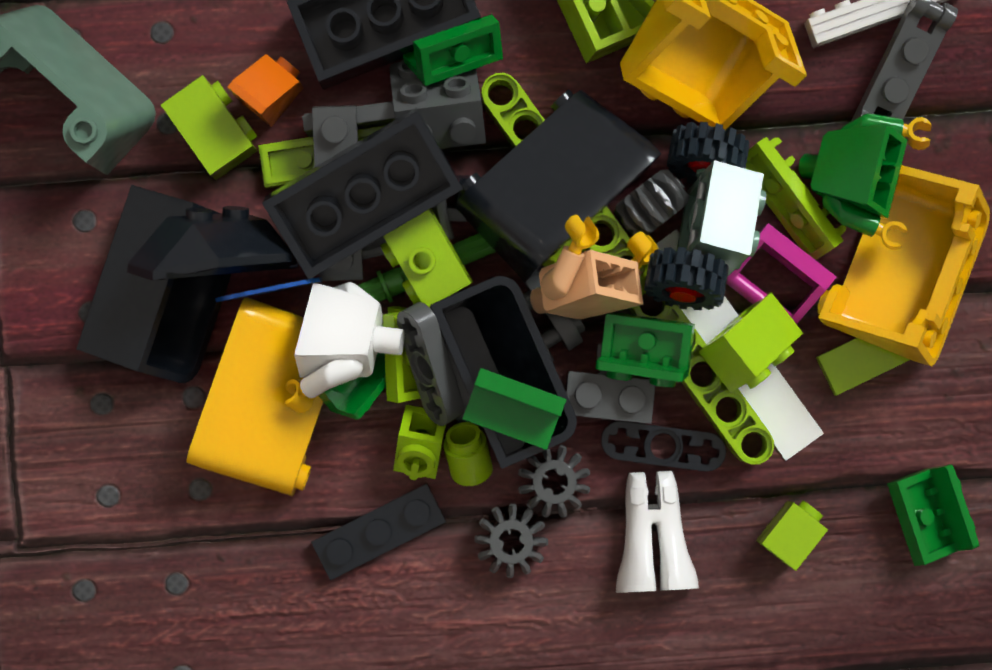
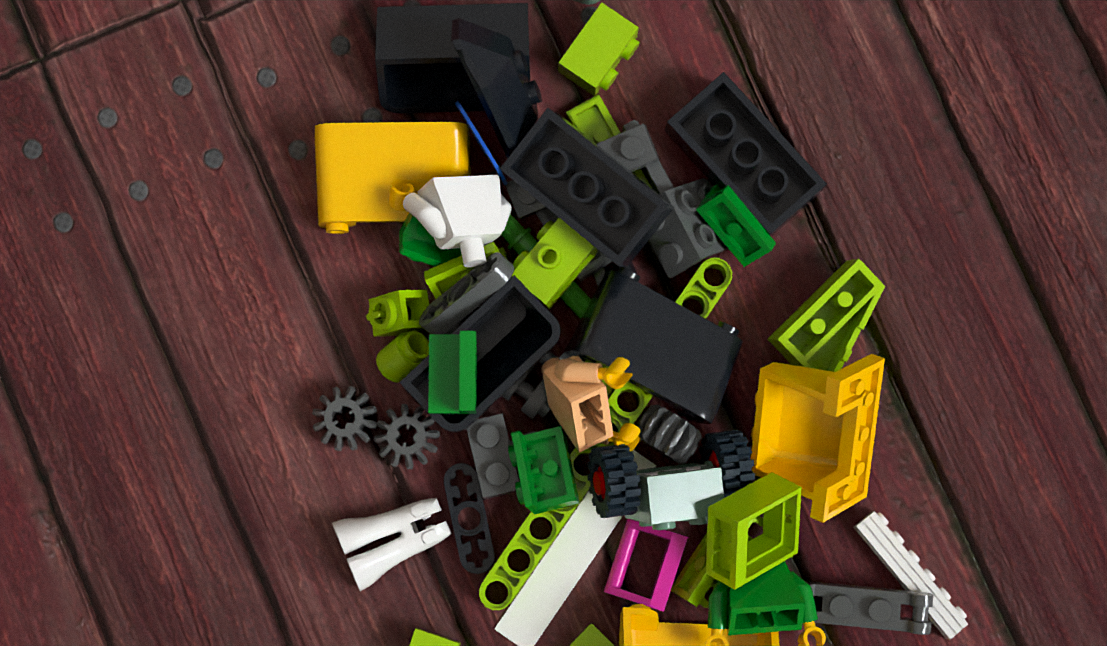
camera: 70 degrees right, 5 degrees down
(267, 87) = (647, 83): orange slope -> none
(378, 531) = (314, 307): black plate -> none
(752, 343) = (581, 559): lime brick -> none
(810, 175) = (729, 553): none -> lime window

